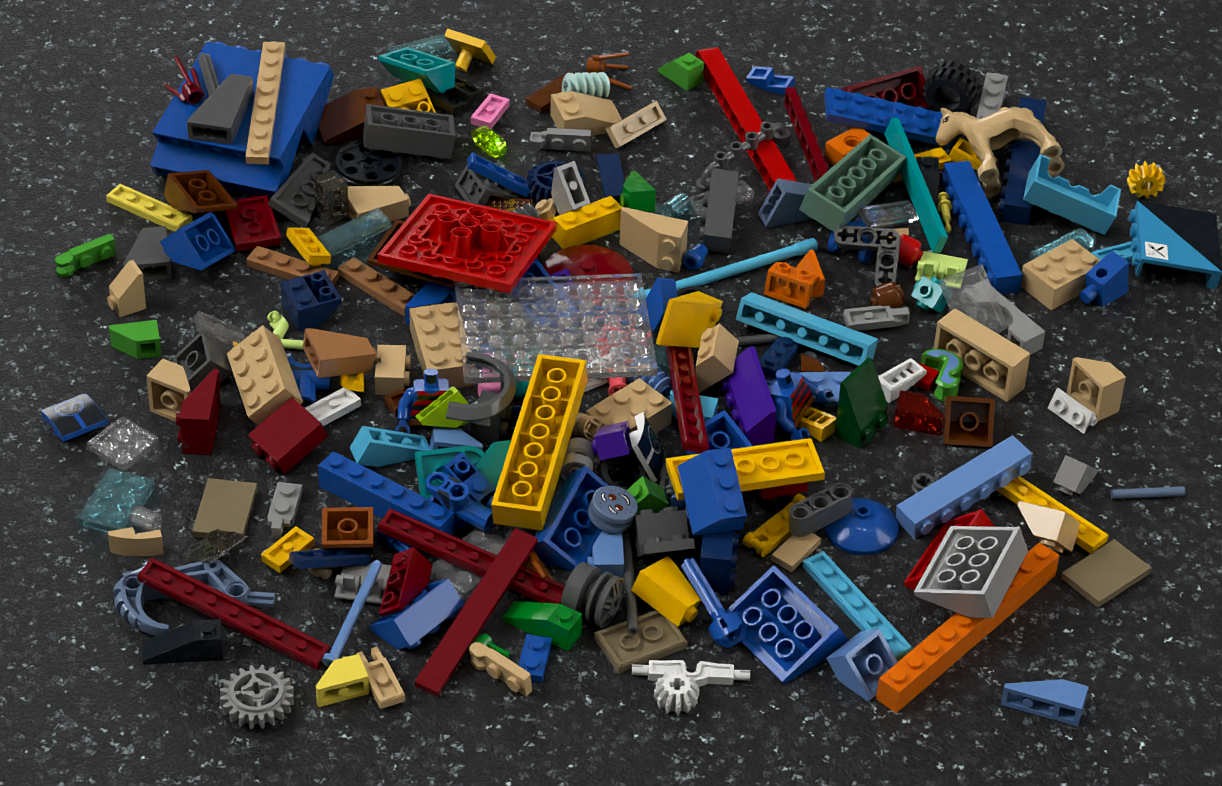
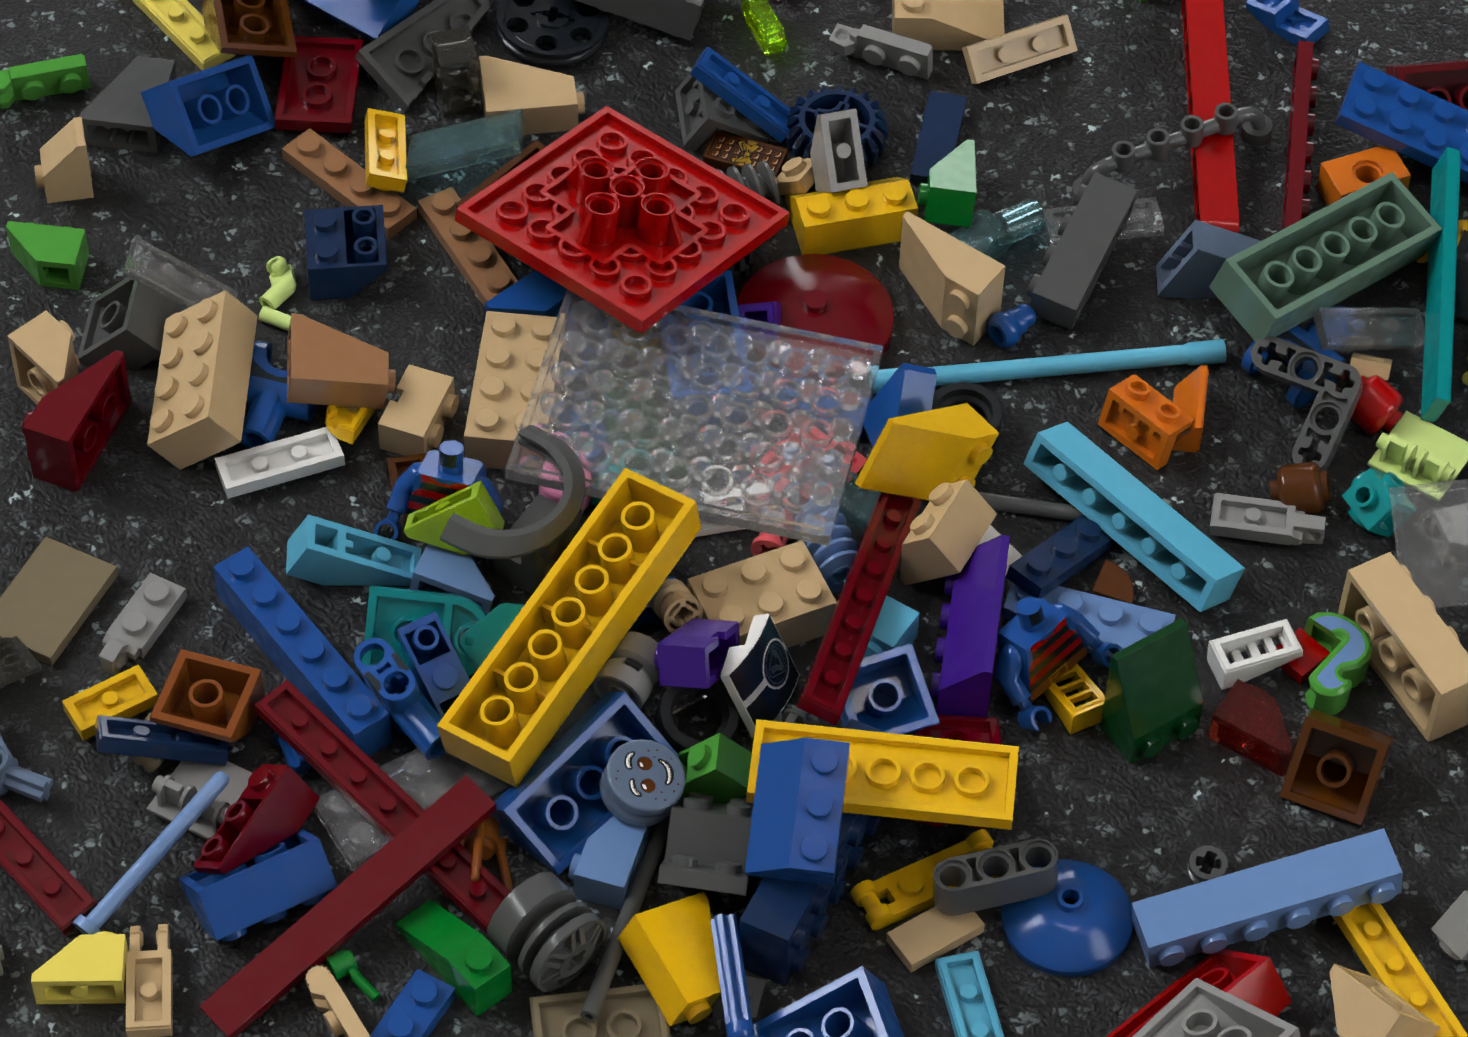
camera: 20 degrees right, 10 degrees up
(287, 436) = (194, 496): dark red brick -> none

